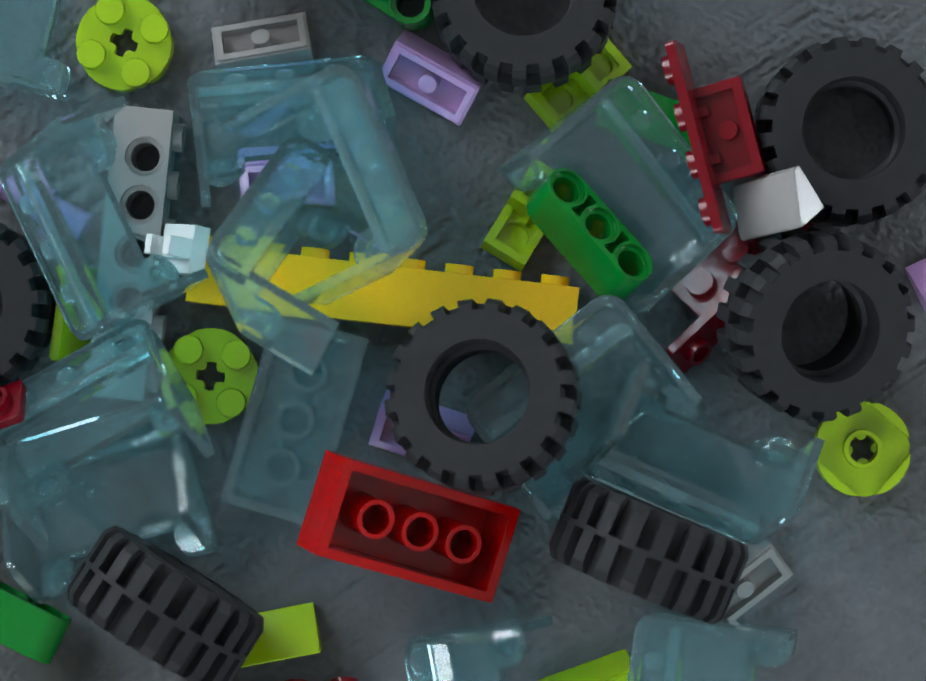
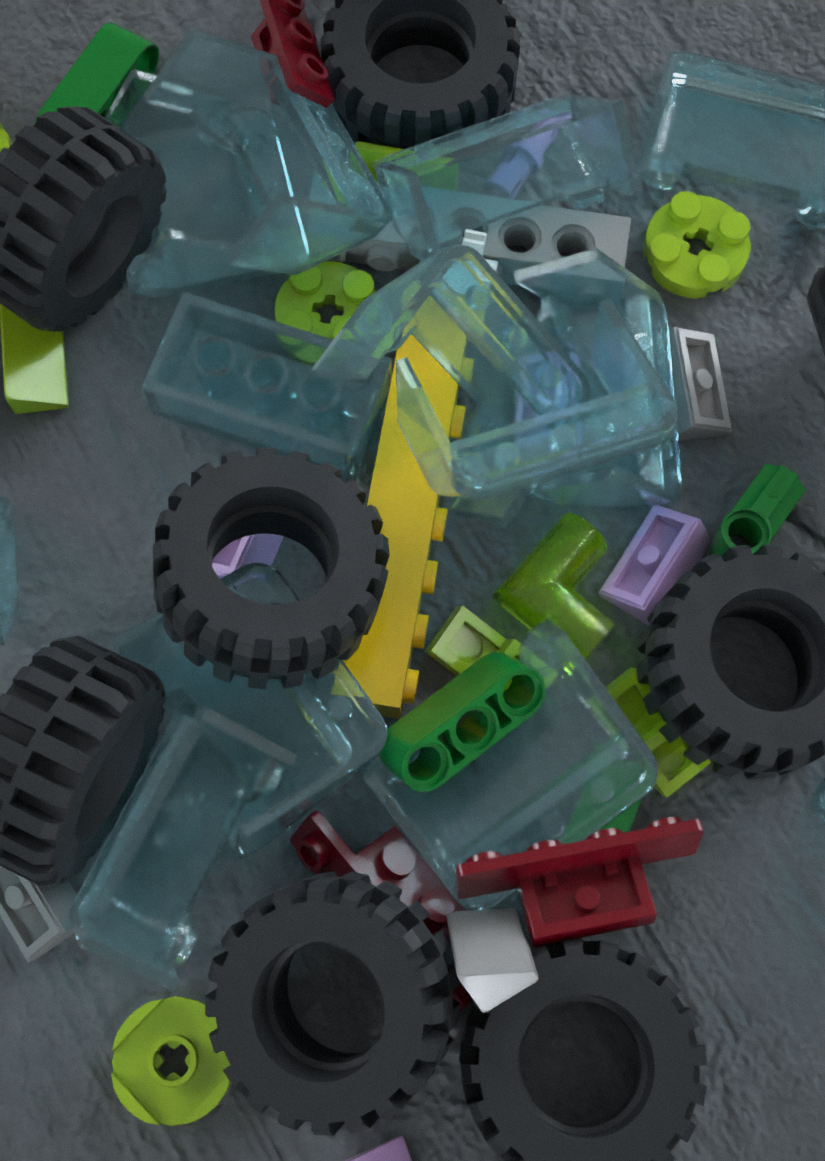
camera: 90 degrees right, 15 degrees down
(407, 527) = (127, 458): red brick -> none
(465, 172) = (547, 579): none -> clear neon green brick

